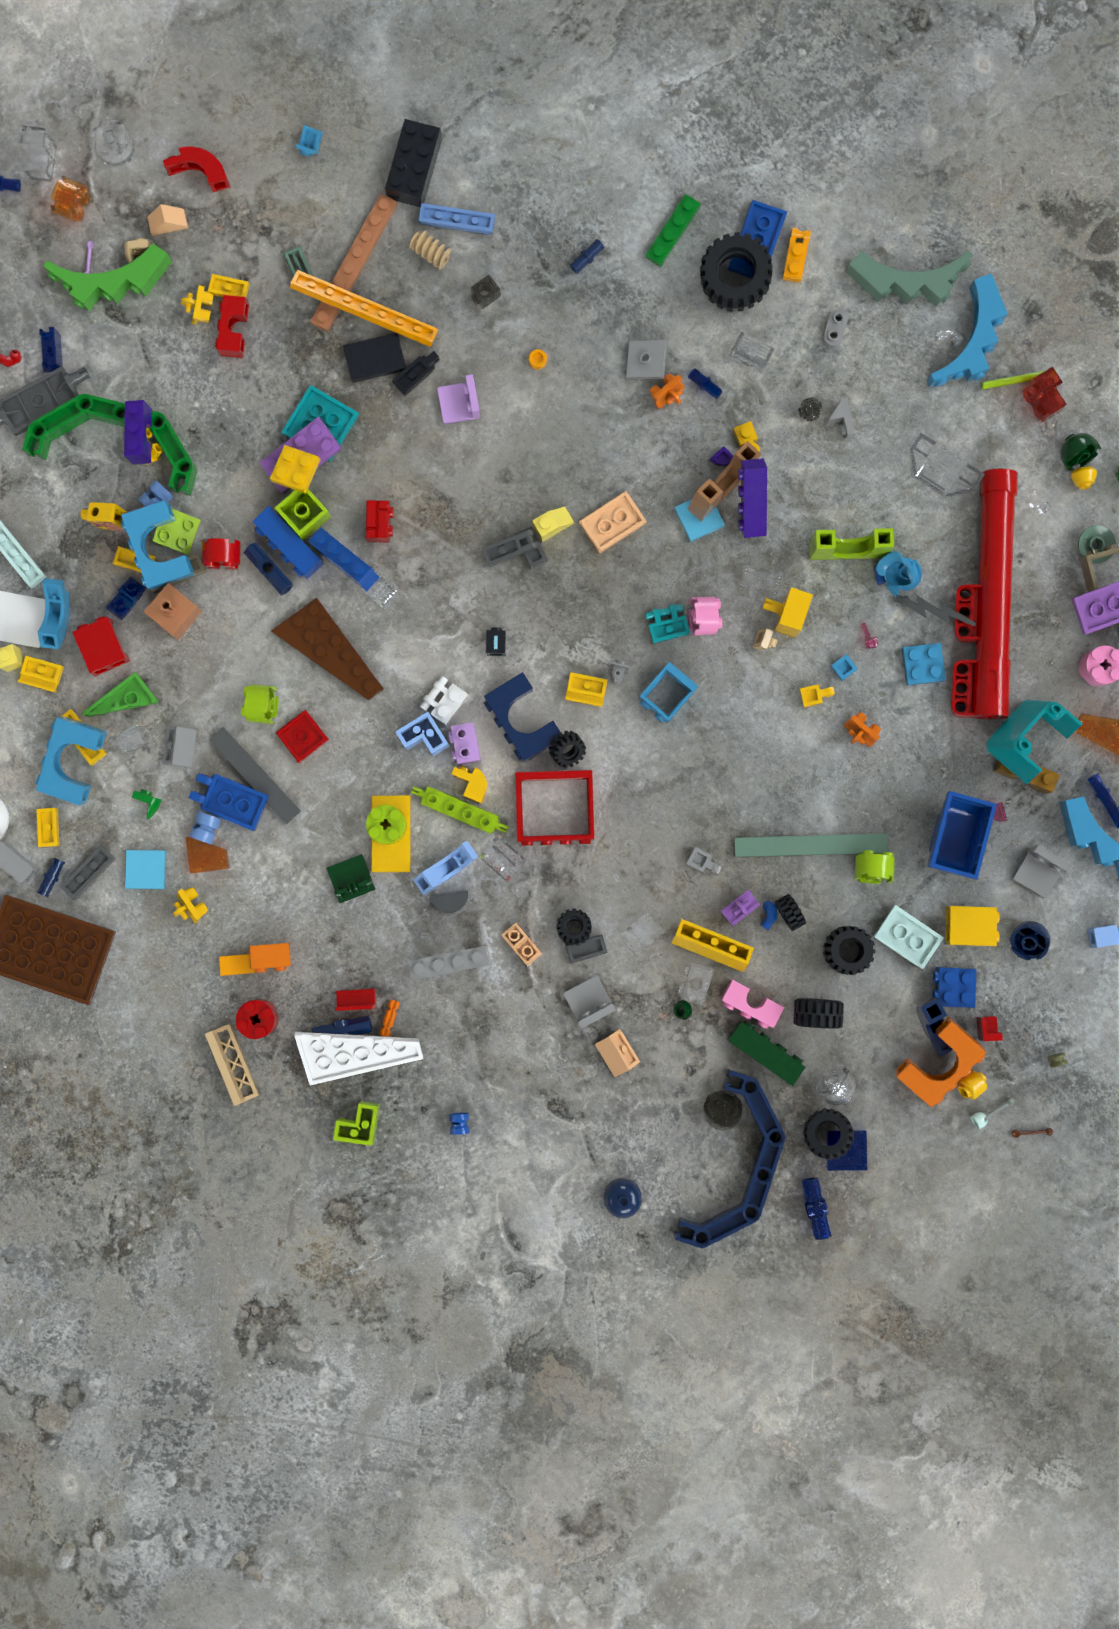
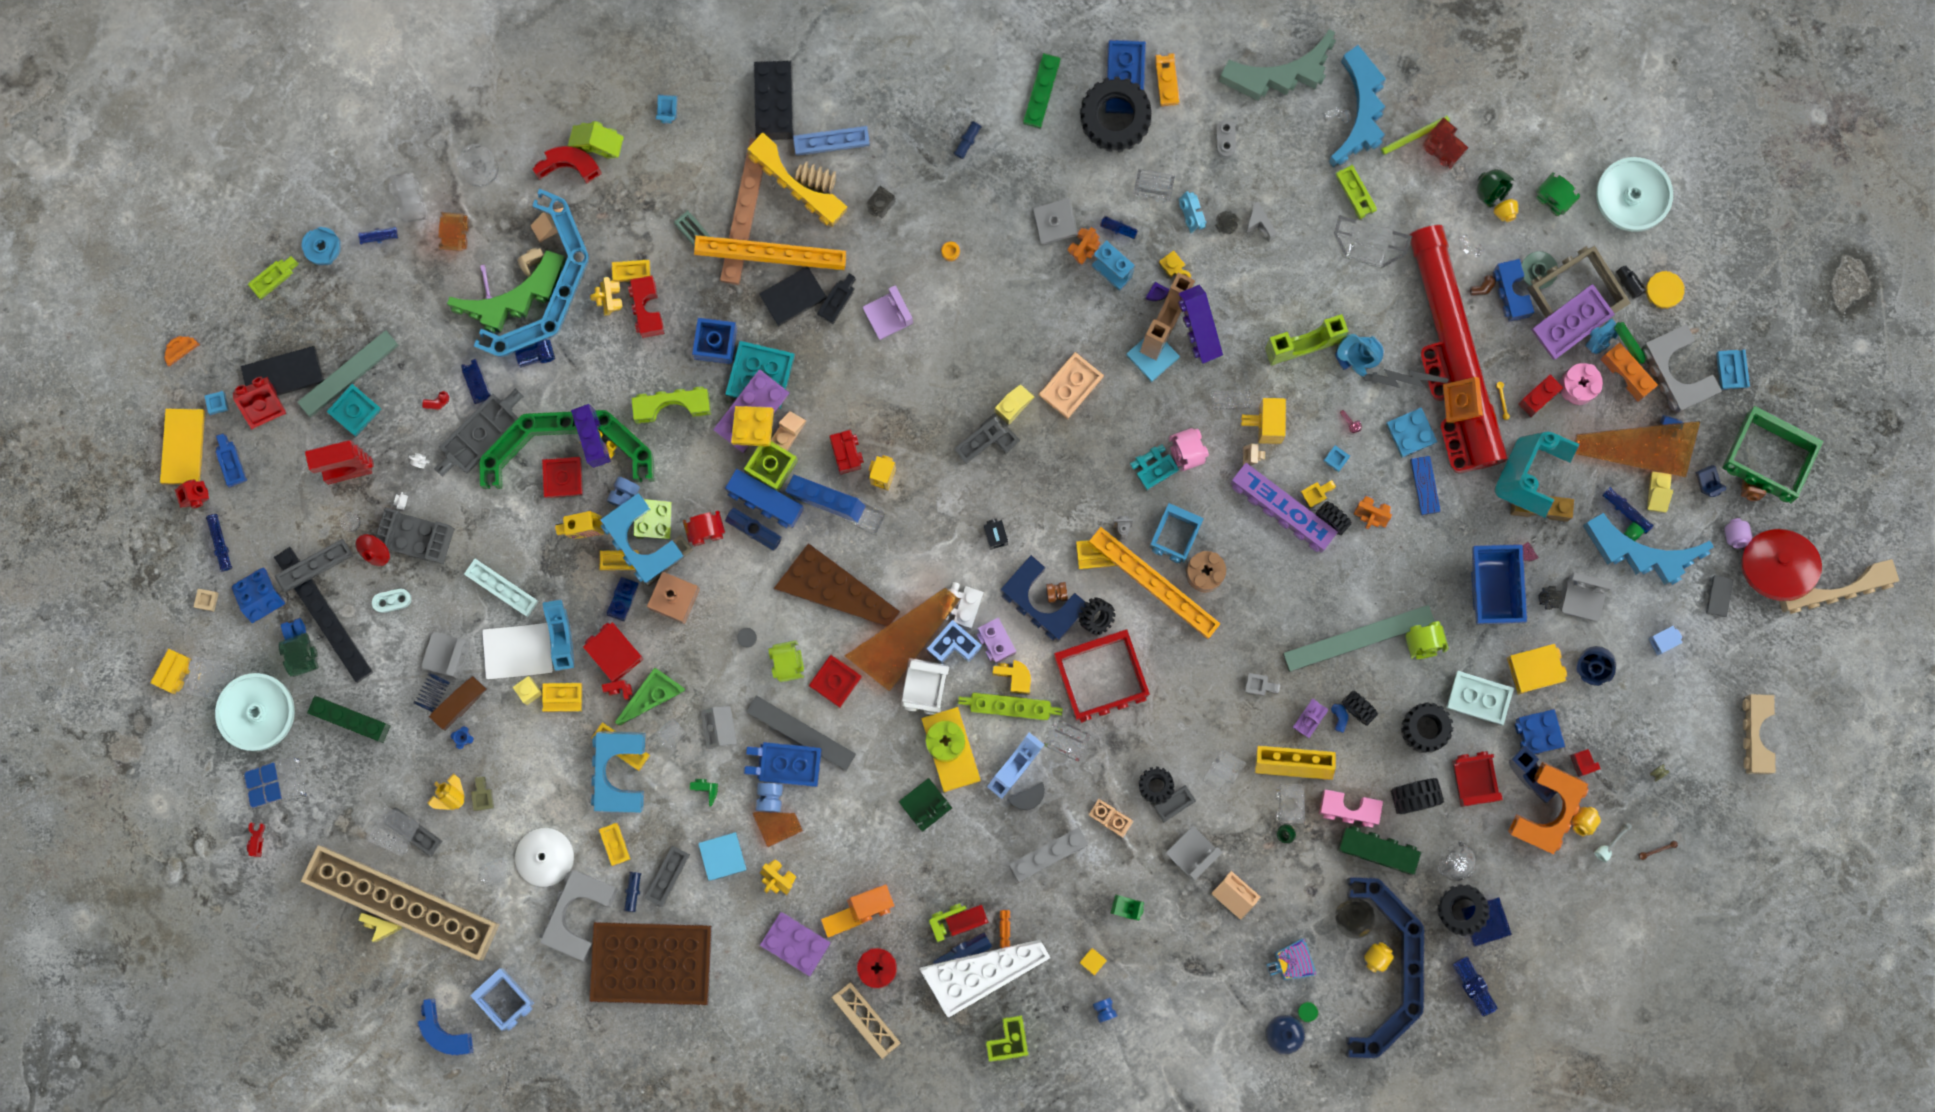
camera: 15 degrees left, 5 degrees down
(92, 679) = (615, 687): none -> red bracket
(103, 466) = (562, 477): none -> red plate
(119, 340) = (540, 352): none -> clear blue piece
(167, 275) = (558, 305): none -> dark azure piece
(188, 972) = (795, 944): none -> medium lavender plate
(204, 423) = (647, 407): none -> lime arch
(230, 148) = (596, 139): none -> lime brick
(232, 670) = (747, 637): none -> dark grey tile
(286, 377) = (714, 341): none -> blue brick
(326, 1000) = (939, 929): none -> lime bracket
(330, 485) = (788, 430): none -> light nougat slope
(372, 719) = (888, 652): none -> clear orange wing
(383, 766) = (924, 686): none -> white panel
(406, 550) = (882, 472): none -> yellow brick
(432, 279) = (825, 205): none -> yellow arch
(463, 1074) = (1093, 961): none -> yellow tile
(510, 1034) = (1127, 907): none -> green bracket
(541, 715) = (1061, 592): none -> dark orange wheel
(632, 733) = (1154, 583): none -> light orange plate
(650, 1183) = (1307, 1012): none -> green tile
(651, 1132) = (1293, 961): none -> torso
(677, 745) = (1211, 562): none -> medium nougat brick
(688, 417) = (1113, 265): none -> dark azure panel
(733, 1153) = (1378, 957): none -> yellow head
(778, 699) = (1283, 507): none -> medium lavender brick
(780, 380) = (1189, 204): none -> medium azure hinge
(822, 723) = (1334, 517): none -> black tyre
(880, 1013) = (1476, 779): none -> red panel
(920, 718) = (1425, 485): none -> blue tile
(944, 416) = (1355, 191): none -> lime plate
(984, 646) = (1463, 400): none -> orange plate
(1006, 862) = (1550, 597): none -> clear smoke gear
(1022, 645) = (1499, 386): none -> yellow hinge
(1039, 546) = (1485, 287): none -> reddish brown arm
(1059, 665) = (1540, 395): none -> red brick
(1062, 572) = (1515, 306): none -> blue arch
(1107, 822) = (1634, 531): none -> green hose

